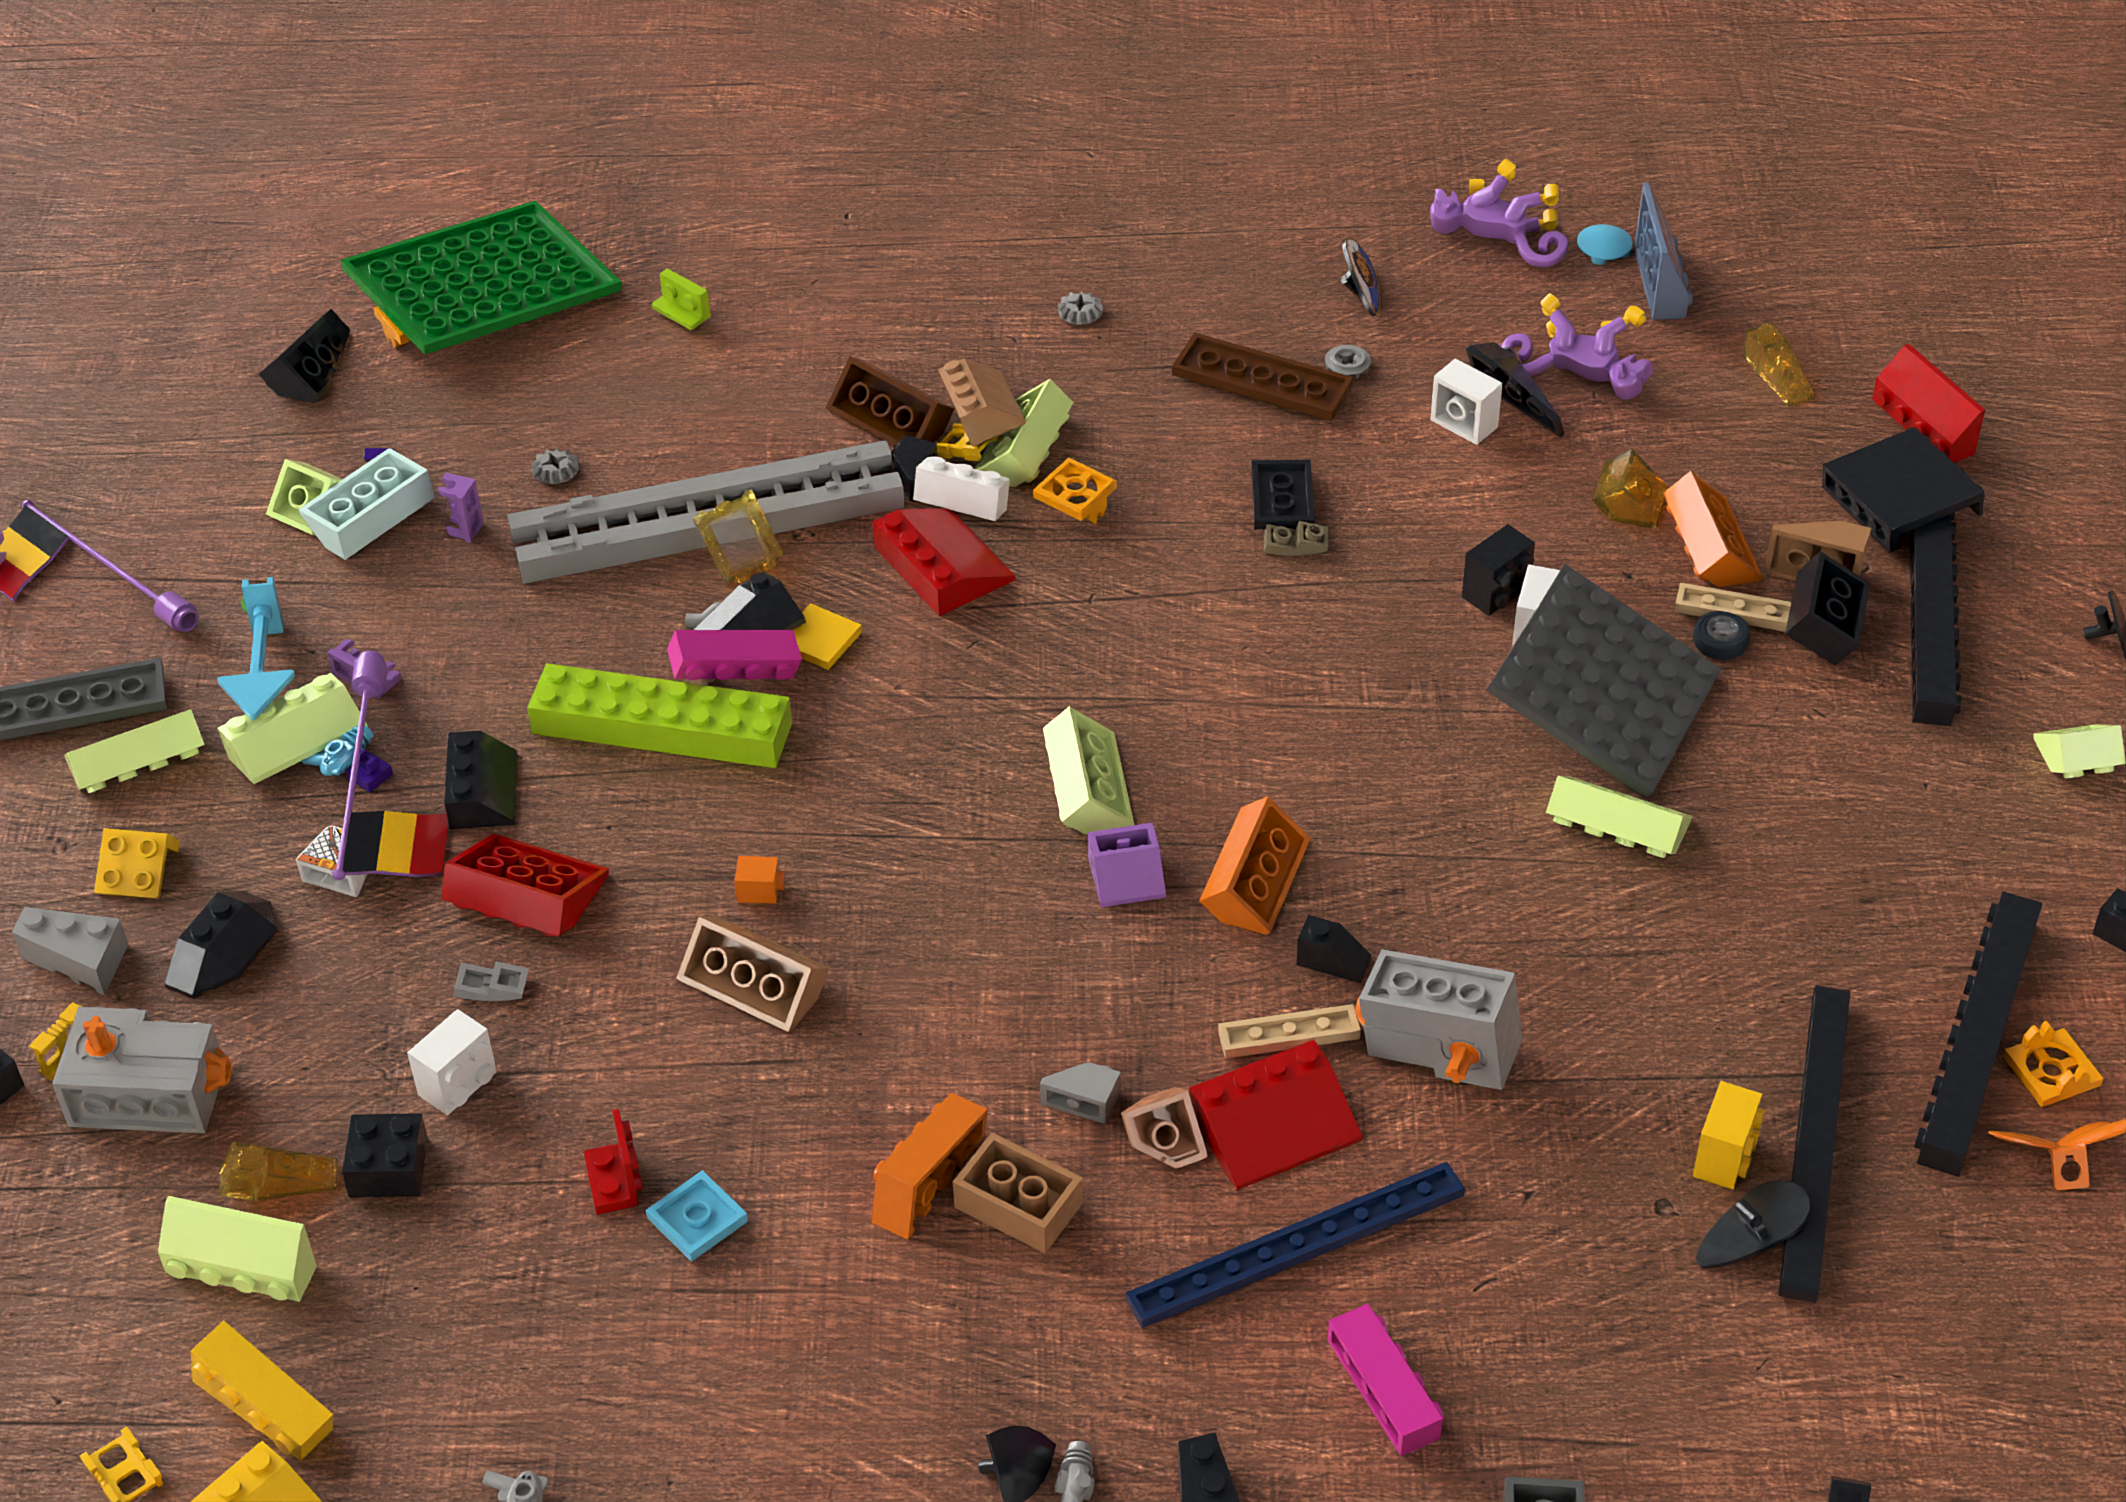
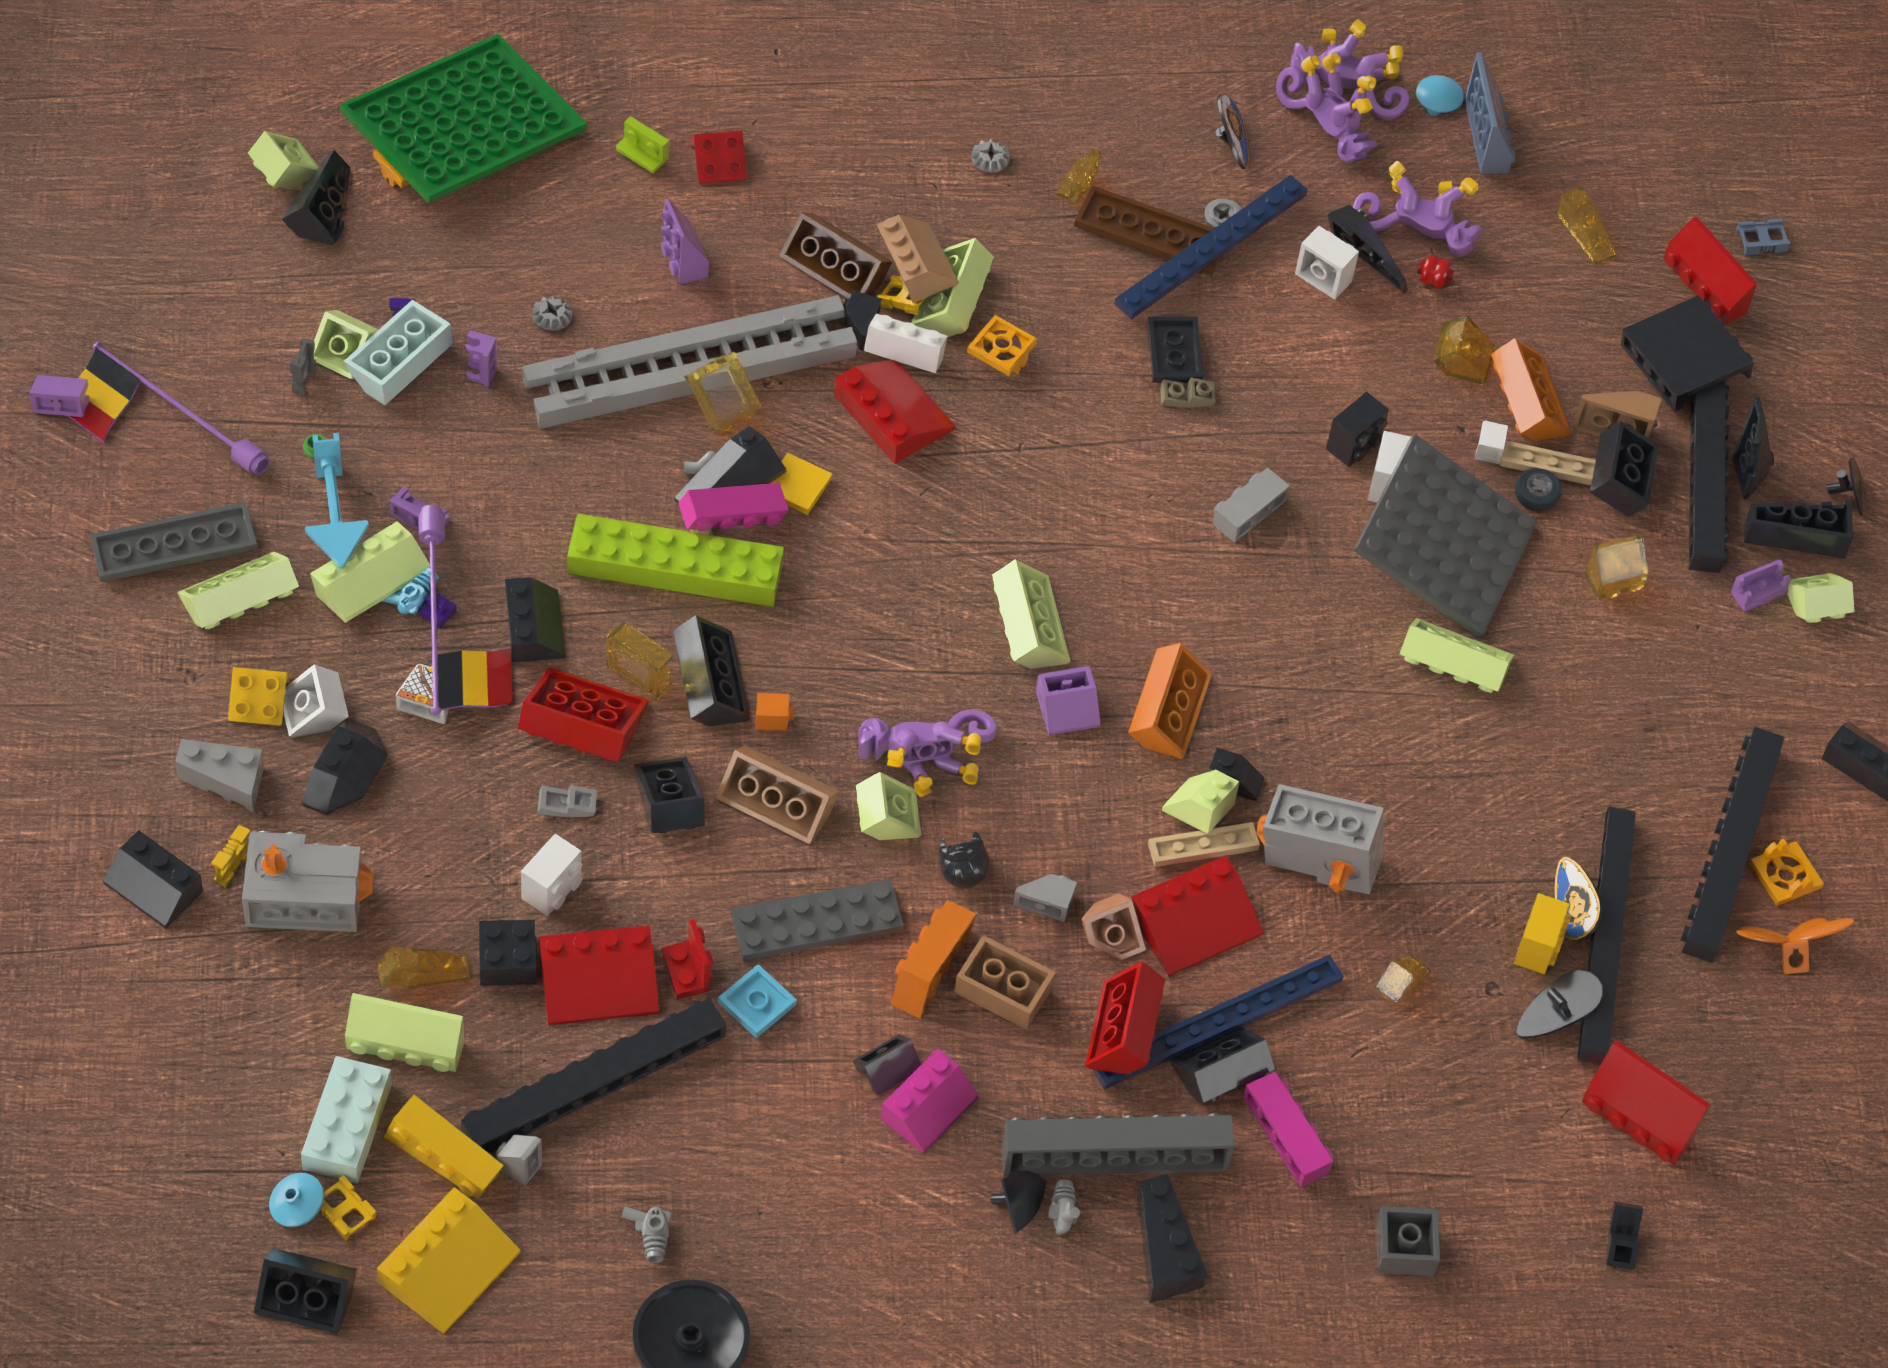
camera: 10 degrees left, 10 degrees up
(61, 1458) = (303, 1206): none -> medium azure dish
(142, 1357) = (346, 1119): none -> light aqua brick
(199, 869) = (314, 702): none -> white slope
(258, 513) = (301, 368): none -> dark grey piece
(271, 320) = (282, 160): none -> yellowish green slope
(360, 1407) = (521, 1157): none -> light grey slope
(471, 1307) = (595, 1076): none -> black brick
(497, 1182) = (598, 975): none -> red slope
(592, 818) = (638, 659): none -> clear yellow window
(618, 975) = (670, 795): none -> black slope
(687, 837) = (710, 673): none -> black slope
(711, 392) = (682, 246): none -> medium lavender slope
(767, 311) = (719, 156): none -> red bracket
(786, 1120) = (816, 919): none -> dark grey plate
(860, 1294) = (889, 1063): none -> black panel
(889, 988) = (887, 808): none -> yellowish green slope
(906, 1339) = (929, 1101): none -> dark pink slope
(938, 910) = (919, 741): none -> medium lavender animal
(979, 1048) = (965, 862): none -> black hair
(1153, 1395) = (1118, 1144): none -> dark grey brick
(1173, 1239) = (1126, 1020): none -> red slope
(1182, 324) = (1080, 177): none -> clear yellow bracket
(1292, 978) = (1203, 800): none -> yellowish green slope
(1301, 1297) = (1223, 1064): none -> black slope
(1328, 389) = (1210, 247): none -> dark blue plate
(1366, 653) = (1250, 504): none -> light grey brick
(1478, 252) = (1332, 111): none -> medium lavender animal
(1542, 1191) = (1402, 978): none -> clear yellow slope
(1597, 412) = (1435, 271): none -> red piece
(1663, 585) = (1491, 442): none -> white panel
(1781, 1095) = (1578, 890): none -> shield
(1821, 714) = (1617, 567): none -> clear yellow slope
(1872, 1345) = (1645, 1103): none -> red slope
(1988, 588) = (1753, 452): none -> black wedge
(1993, 380) = (1765, 242): none -> sand blue piece
(2004, 736) = (1760, 585): none -> medium lavender hinge
(2052, 672) = (1801, 528): none -> black wedge

